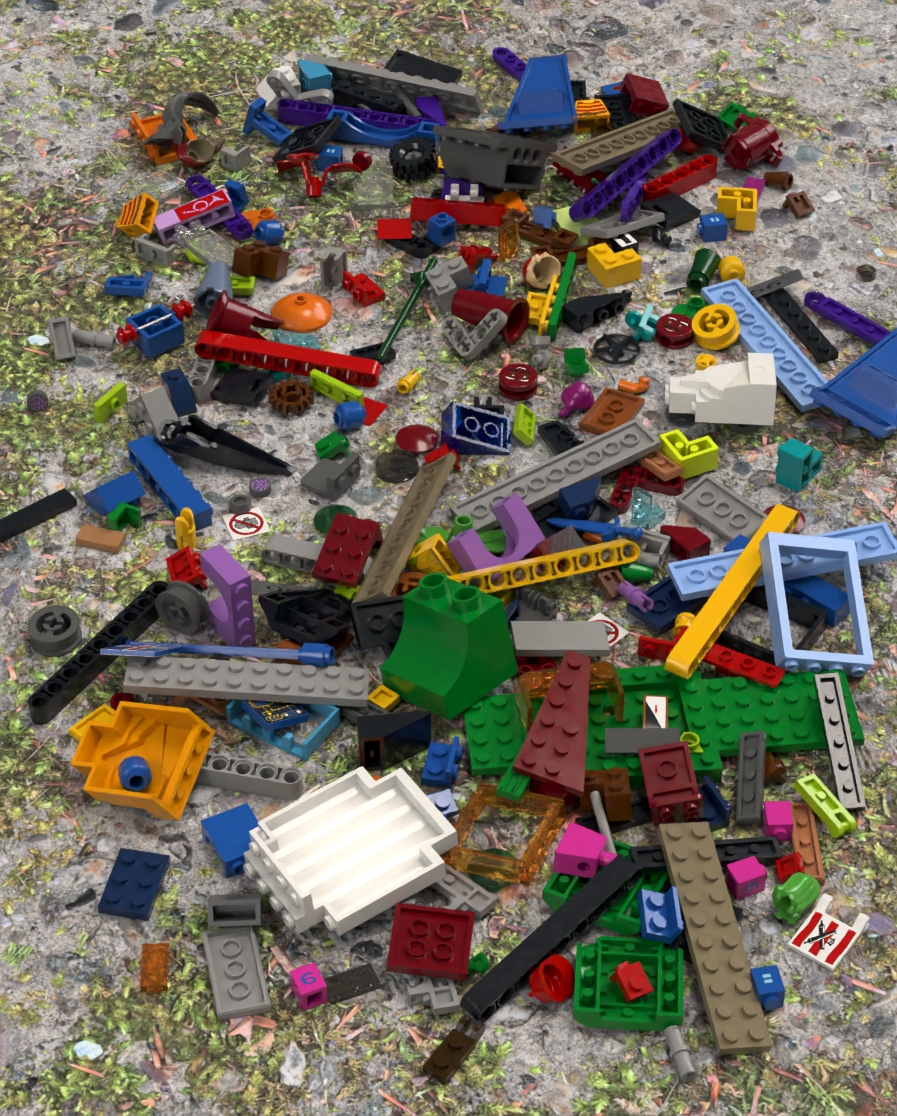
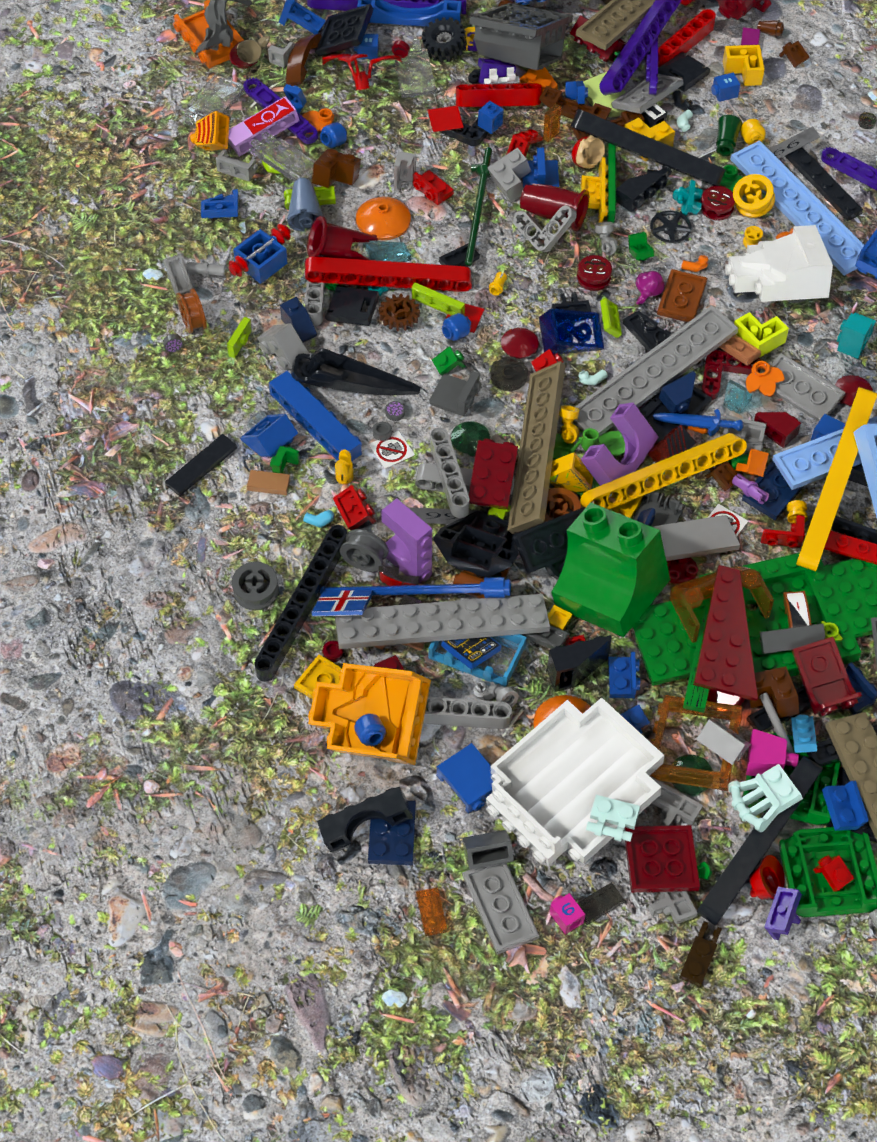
camera: 10 degrees left, 15 degrees up
(64, 370) = (191, 310): none -> dark orange wheel
(75, 868) = (339, 827): none -> black arch
(146, 578) = (319, 520): none -> medium azure arm
(208, 636) = (391, 577): none -> clear smoke slope
(246, 171) = (295, 68): none -> reddish brown slope
(288, 758) = (489, 690): none -> light grey arm
(297, 543) = (457, 498): none -> light grey beam
(382, 879) = (613, 812): none -> light aqua plate
(448, 508) = (569, 431): none -> yellow arm
(481, 479) = (593, 380): none -> light aqua arm
(530, 828) = (723, 741): none -> light grey hinge
(558, 1014) = (783, 912): none -> dark purple panel
(563, 889) = (779, 794): none -> light aqua plate
(606, 269) = (648, 148): none -> black beam
(631, 837) = (803, 734): none -> dark azure plate
(646, 571) = (755, 464): none -> orange panel
(656, 254) = (682, 120): none -> light aqua arm
(682, 498) = (764, 381): none -> orange plate

